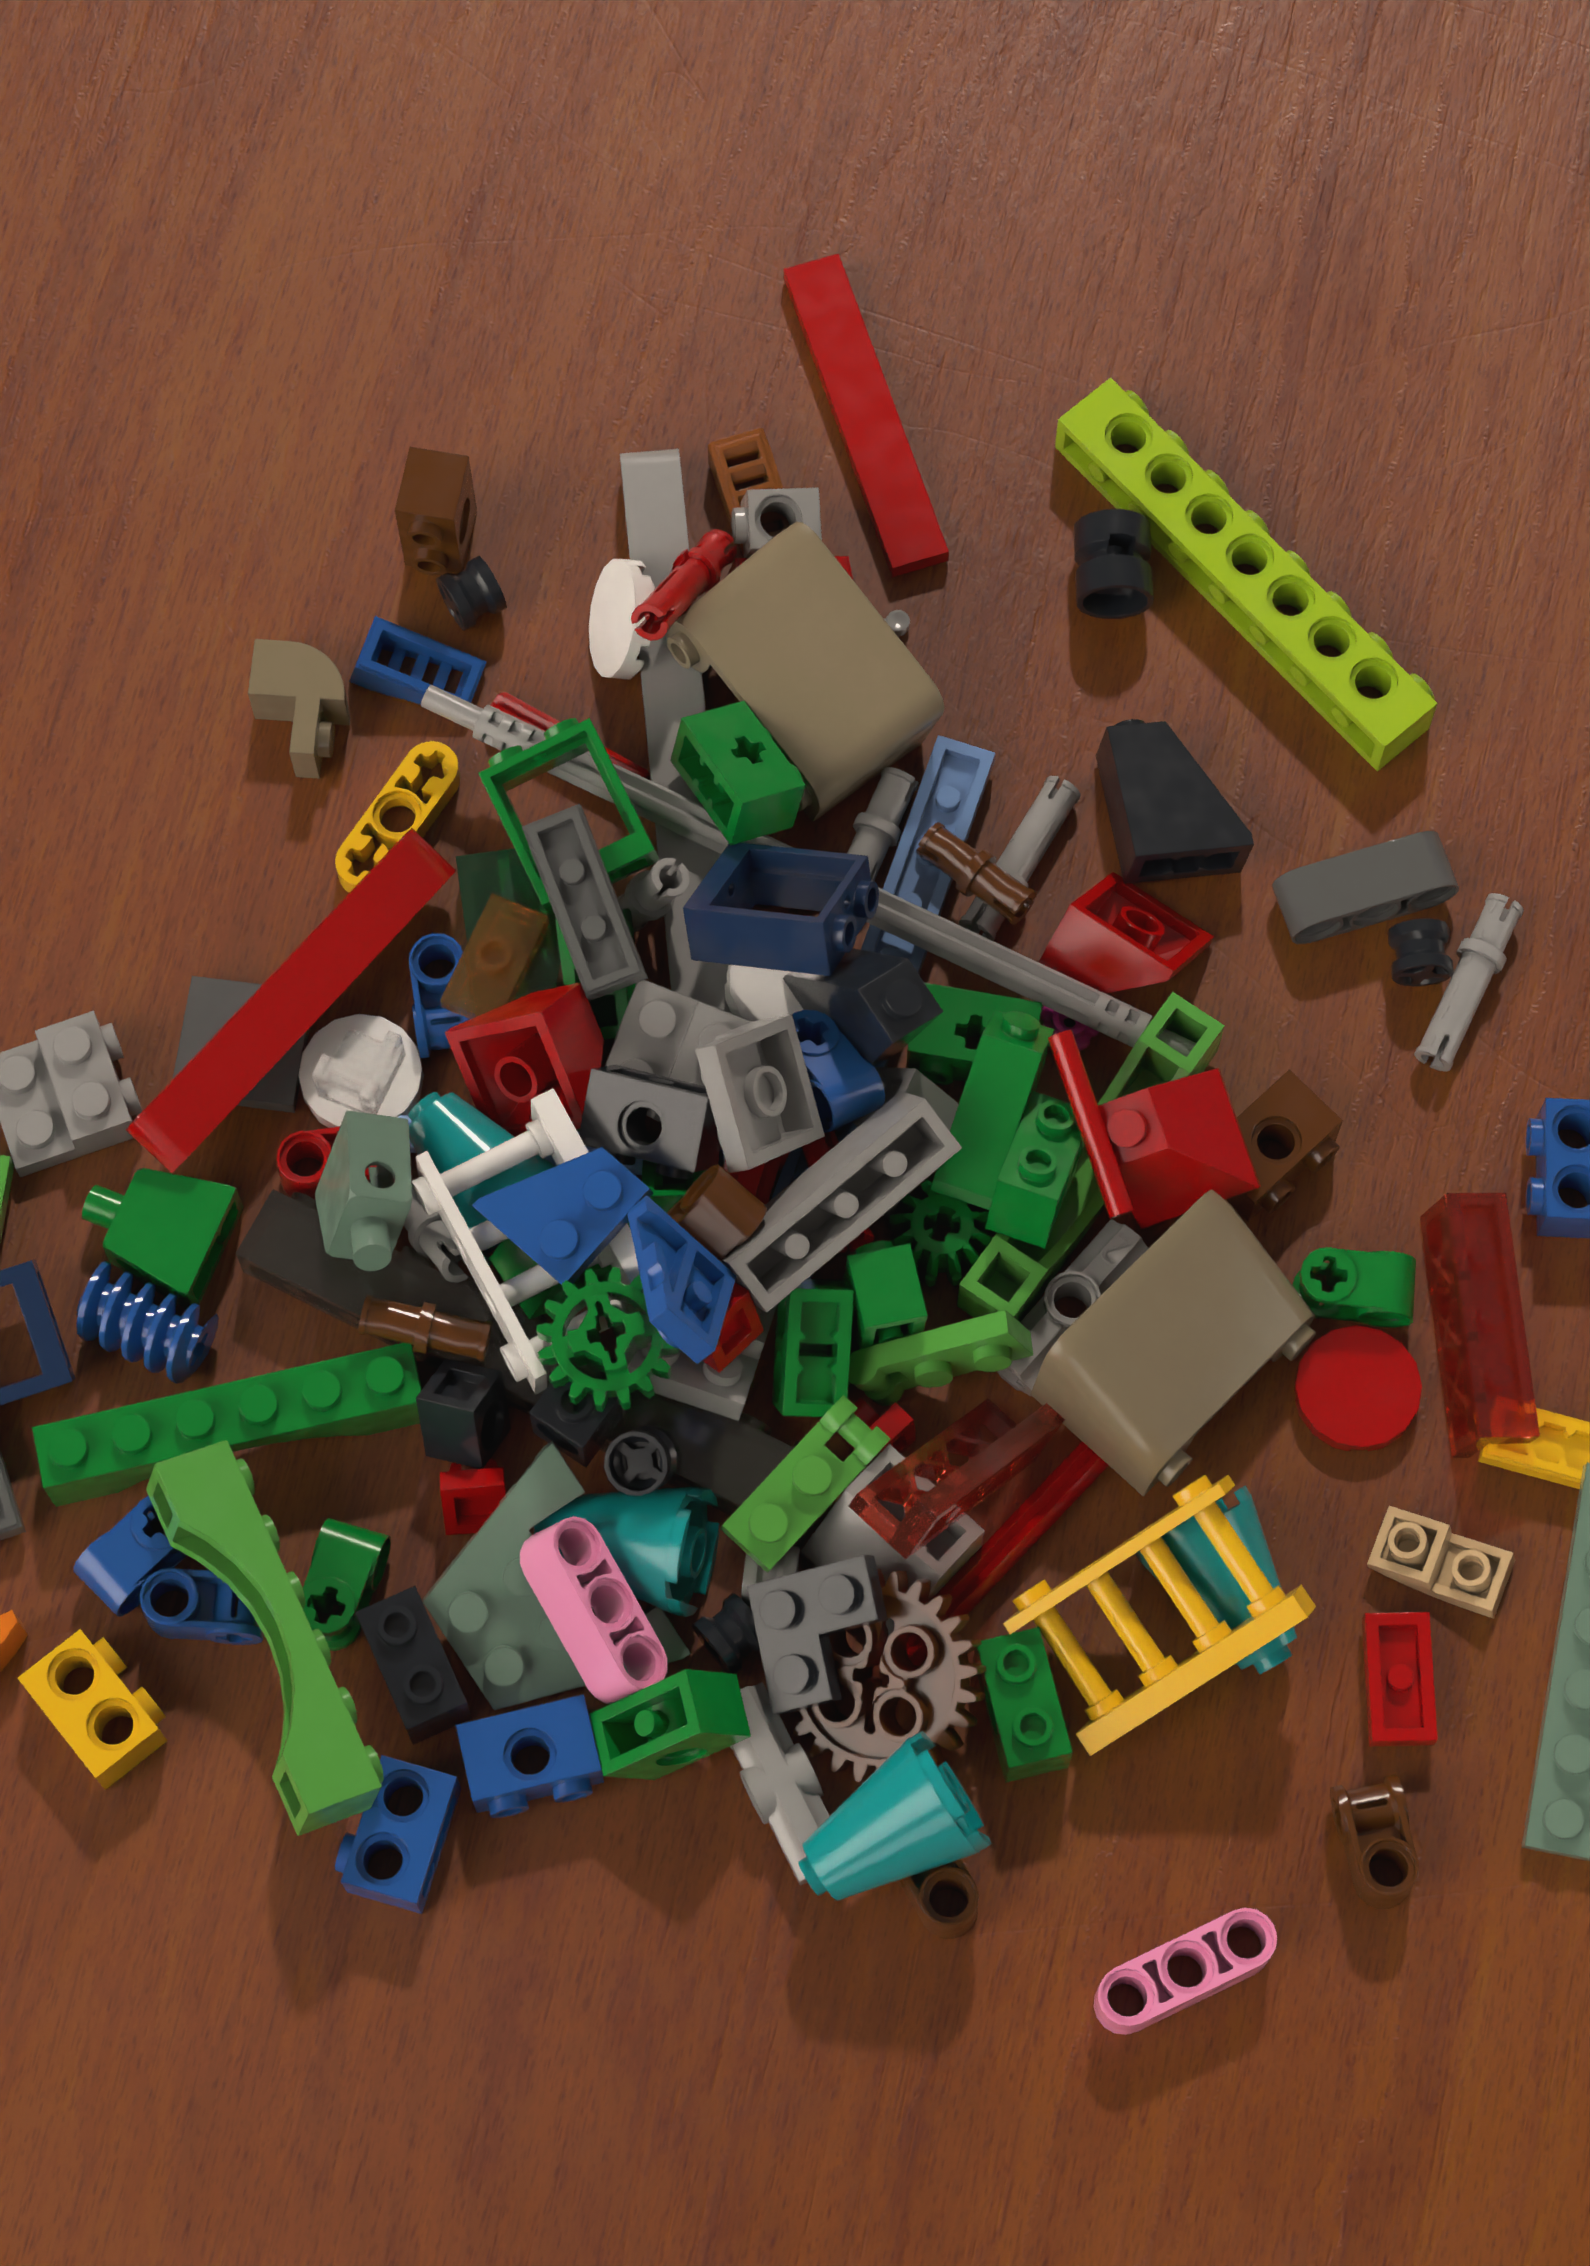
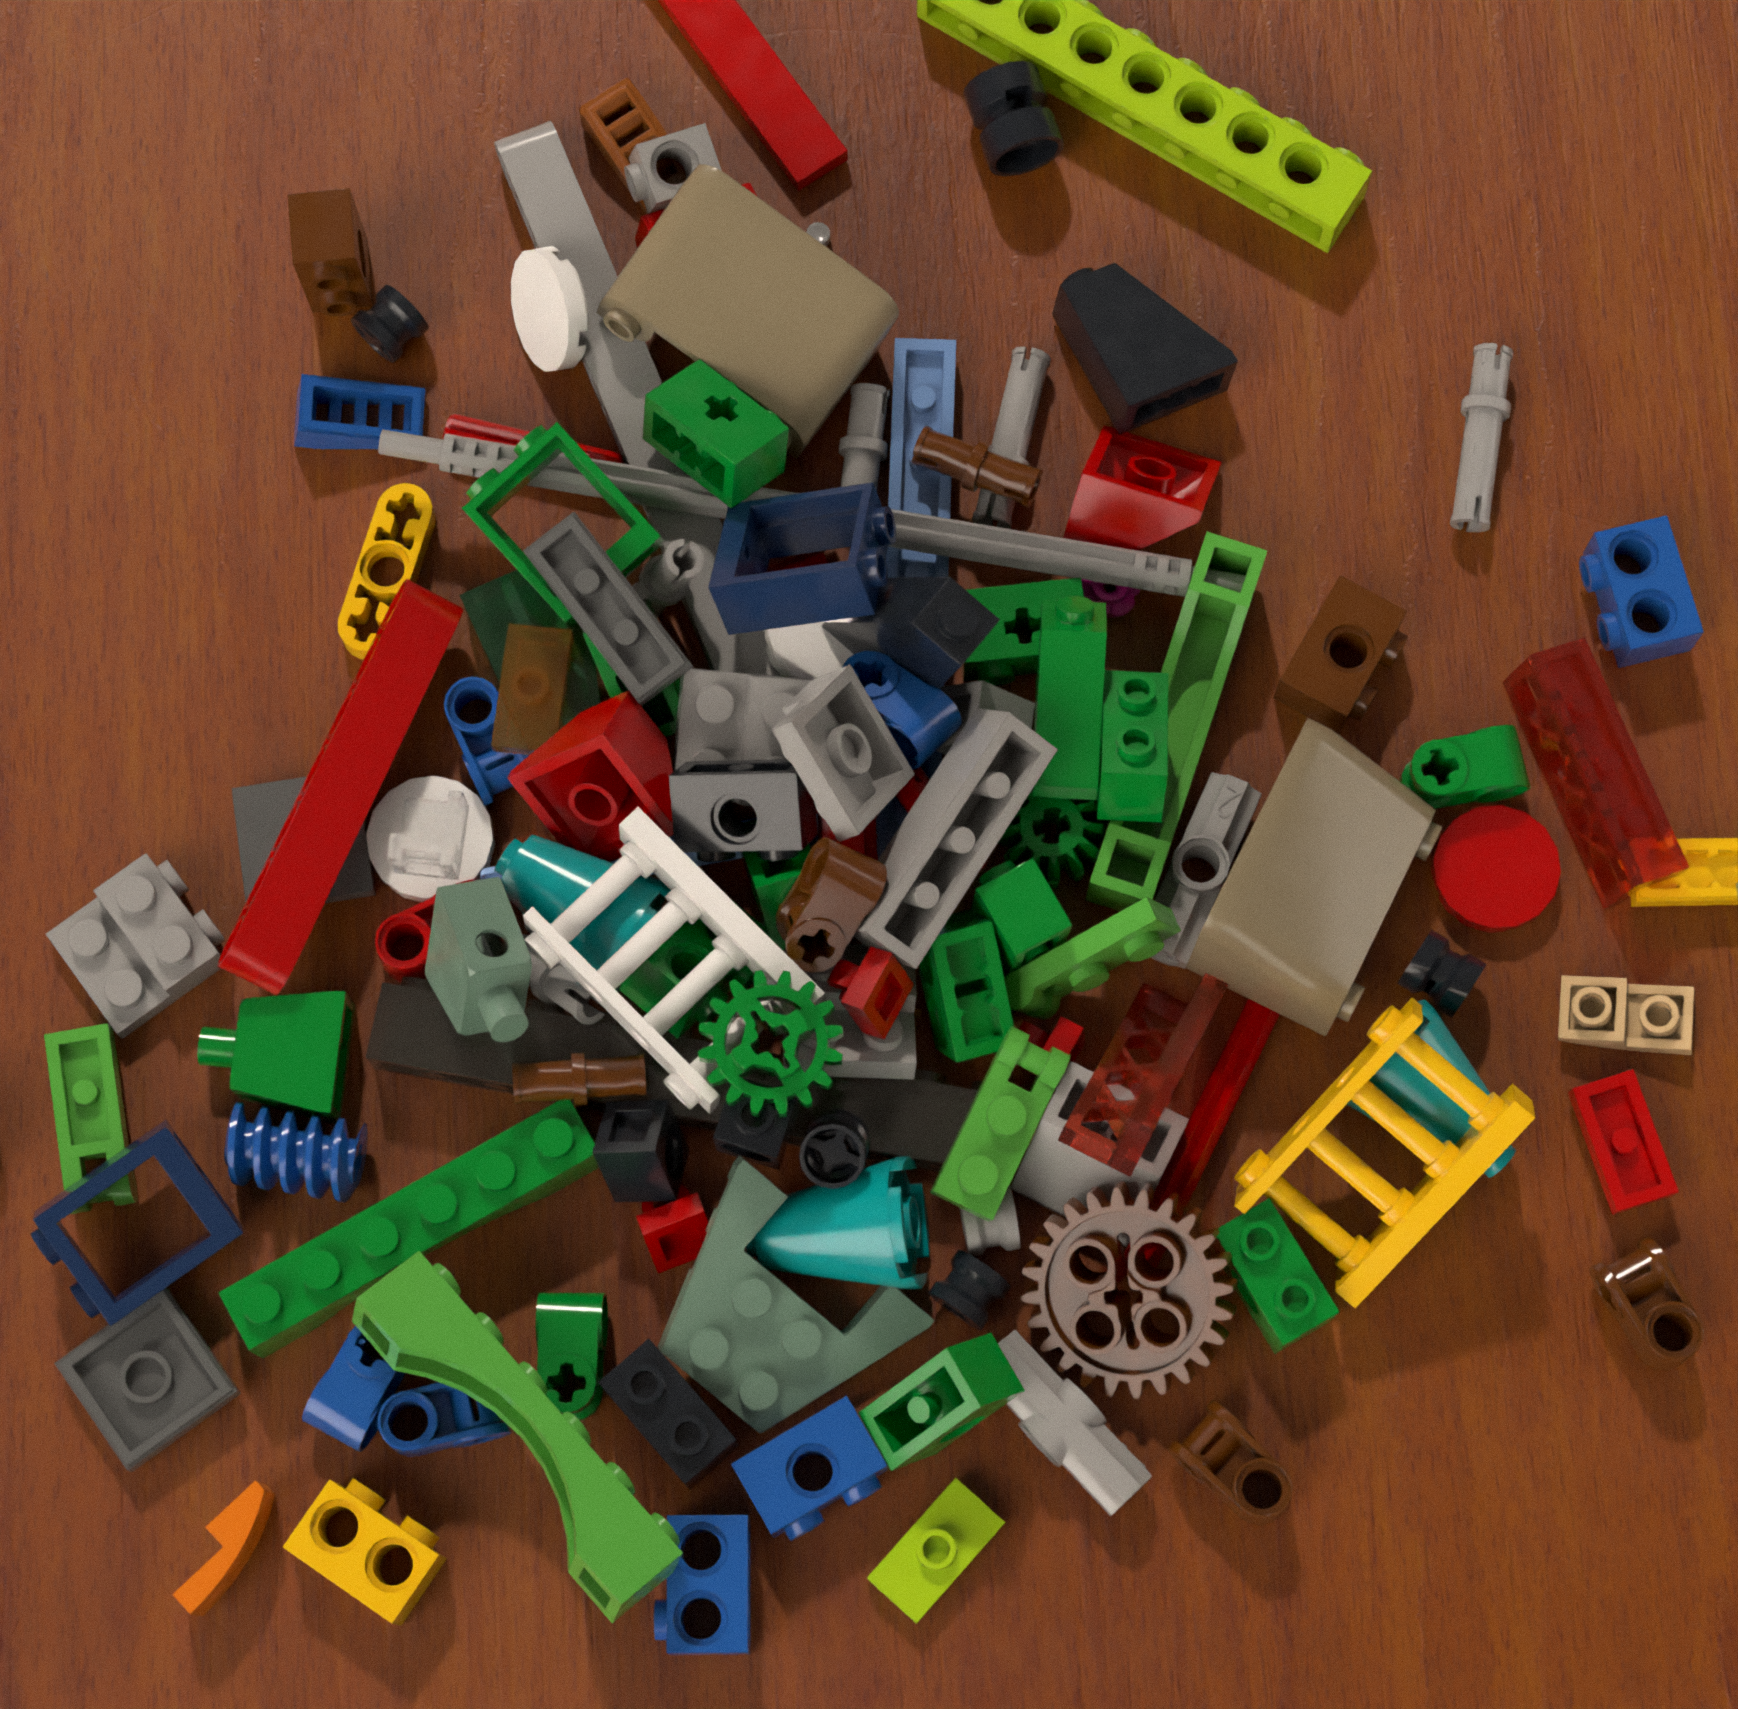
camera: 15 degrees left, 5 degrees up
(303, 687) = (248, 465): dark tan brick -> none
(566, 1211) = (690, 927): blue wing -> none
(588, 1579) = (861, 1321): bright pink beam -> none
(625, 1868) = (935, 1550): none -> lime plate
(680, 1281) = (829, 967): blue wing -> none
(691, 576) = (606, 246): red pin -> none
(794, 1626) = (1033, 1263): plate -> none
(894, 1826) = (1192, 1439): teal cone -> none
(1090, 1124) = (1173, 688): red bar -> none
(1178, 1146) = (1257, 685): red slope -> none
(1210, 1950) = (1534, 1472): bright pink beam -> none
(1273, 1470) = (1442, 973): none -> black wheel
(1365, 887) = (1354, 372): dark grey beam -> none
(1420, 952) = (1427, 421): black wheel -> none

